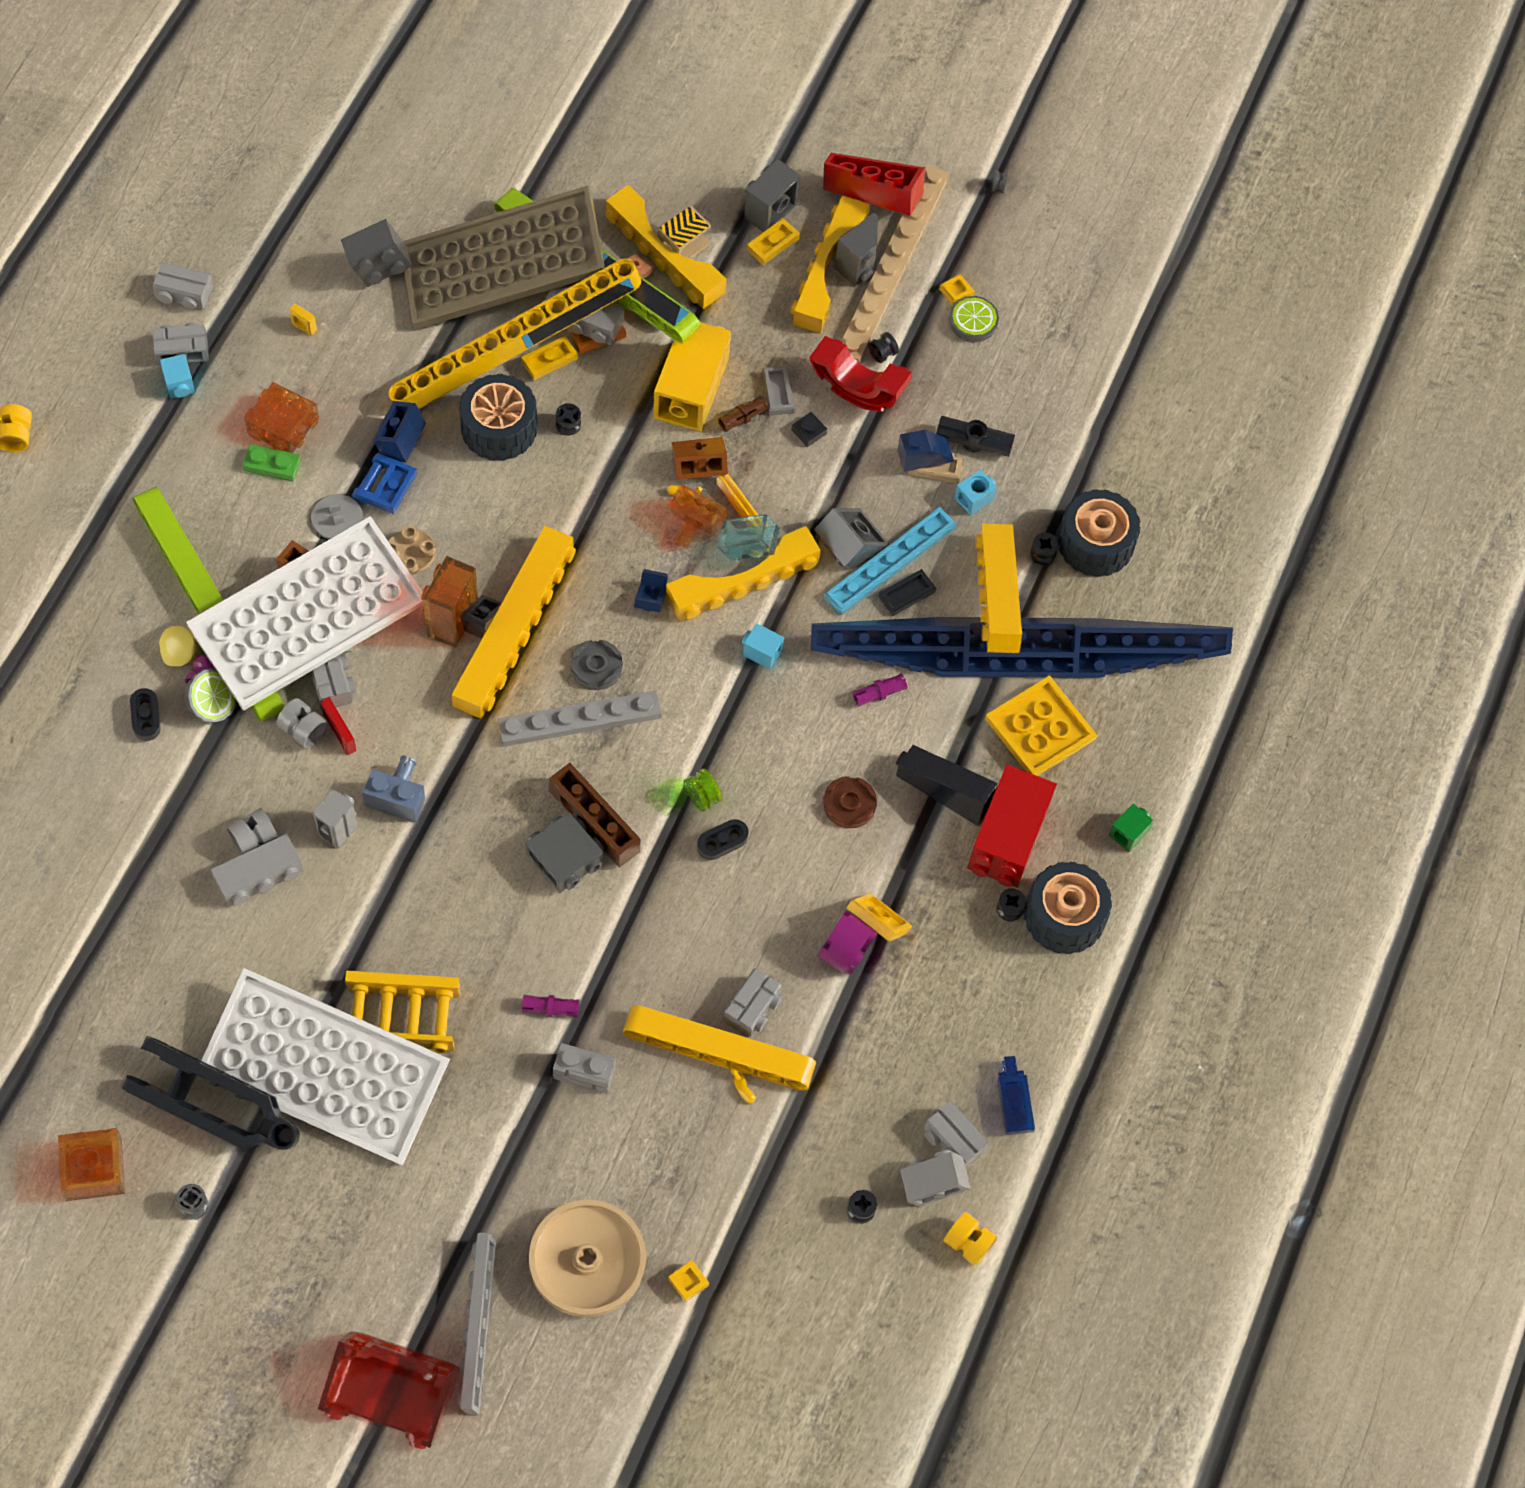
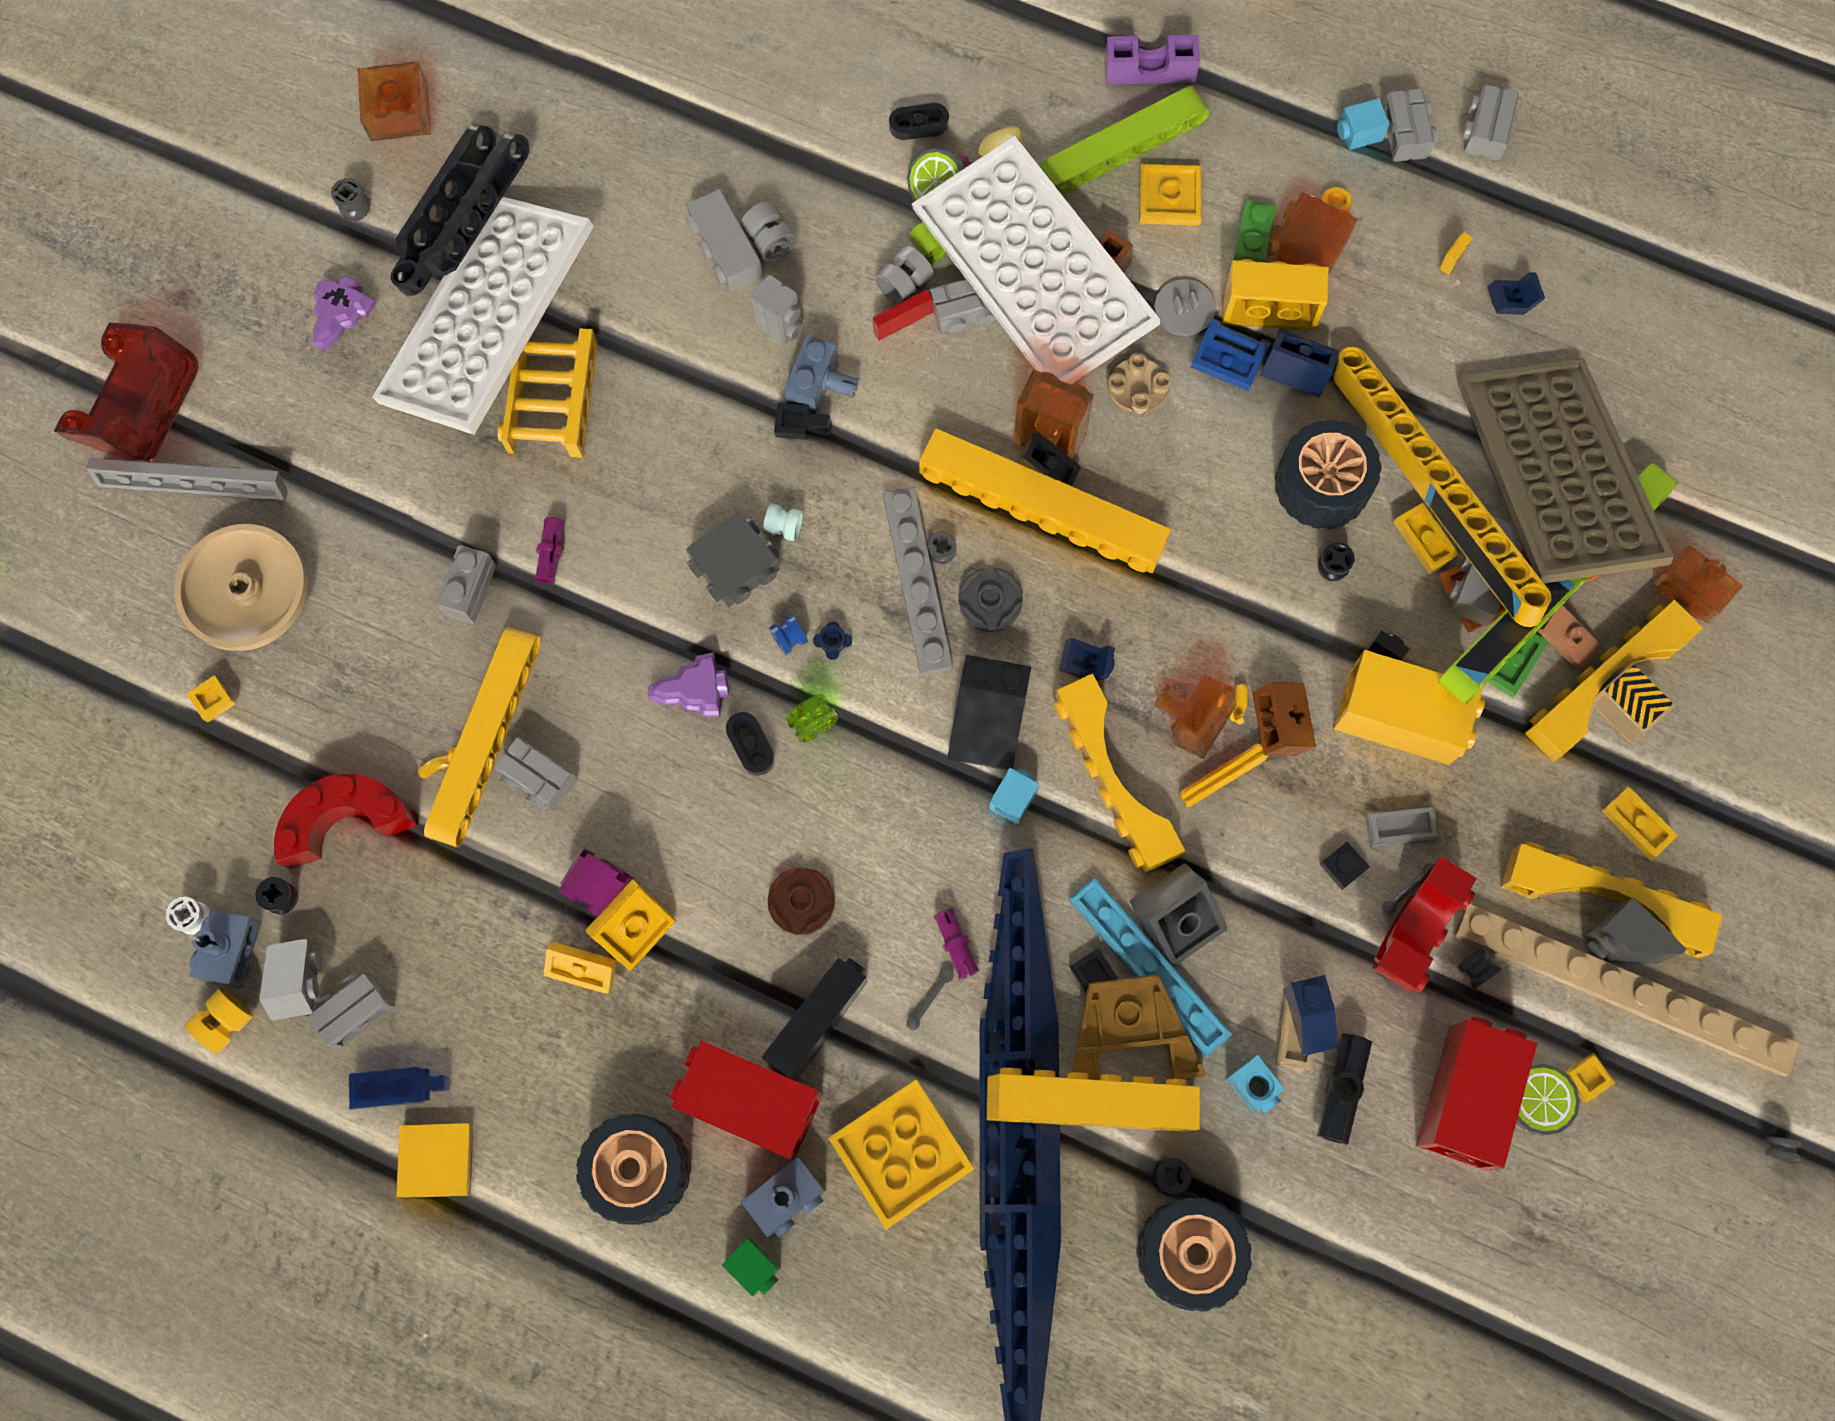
camera: 100 degrees right, 10 degrees up
(104, 538) = (1172, 63): none -> medium lavender arch
(230, 523) = (1170, 194): none -> yellow tile
(244, 401) = (1338, 198): none -> yellow tile
(308, 1204) = (337, 309): none -> medium lavender rock
(339, 443) = (1275, 295): none -> yellow brick
(342, 281) = (1516, 296): none -> dark blue bracket
(376, 253) = (1555, 322): dark grey brick -> none
(435, 809) = (795, 421): none -> black plate
(530, 814) = (783, 522): none -> light aqua wheel
(546, 693) = (951, 545): none -> dark grey bush
(598, 177) = (1698, 584): none -> clear orange brick
(598, 816) = (779, 591): reddish brown brick -> none
(629, 810) = (788, 634): none -> blue wheel
(632, 772) = (831, 631): none -> dark blue plate
(640, 387) = (1389, 646): none -> black plate
(674, 882) = (694, 687): none -> medium lavender rock
(694, 663) = (989, 712): none -> black slope
(743, 413) = (1360, 778): reddish brown pin -> none
(748, 537) = (1163, 776): clear light blue piece -> none
(771, 195) = (1709, 816): dark grey brick -> none
(782, 1171) = (329, 800): none -> red brick
(811, 377) = (1390, 906): none -> dark grey hinge
(875, 181) = (1749, 962): red wedge -> none
(880, 1281) = (192, 918): none -> white wheel
(904, 699) = (945, 977): none -> dark grey hinge
(909, 1243) = (224, 948): none -> sand blue brick
(912, 960) = (579, 967): none -> yellow plate
(932, 574) = (1131, 1016): none -> pearl gold wing
(975, 351) = (1477, 1094): none -> red brick
(1011, 911) = (654, 1102): black wheel -> none
(1068, 1065) = (434, 1160): none -> yellow tile
(1079, 805) = (784, 1197): none -> sand blue brick

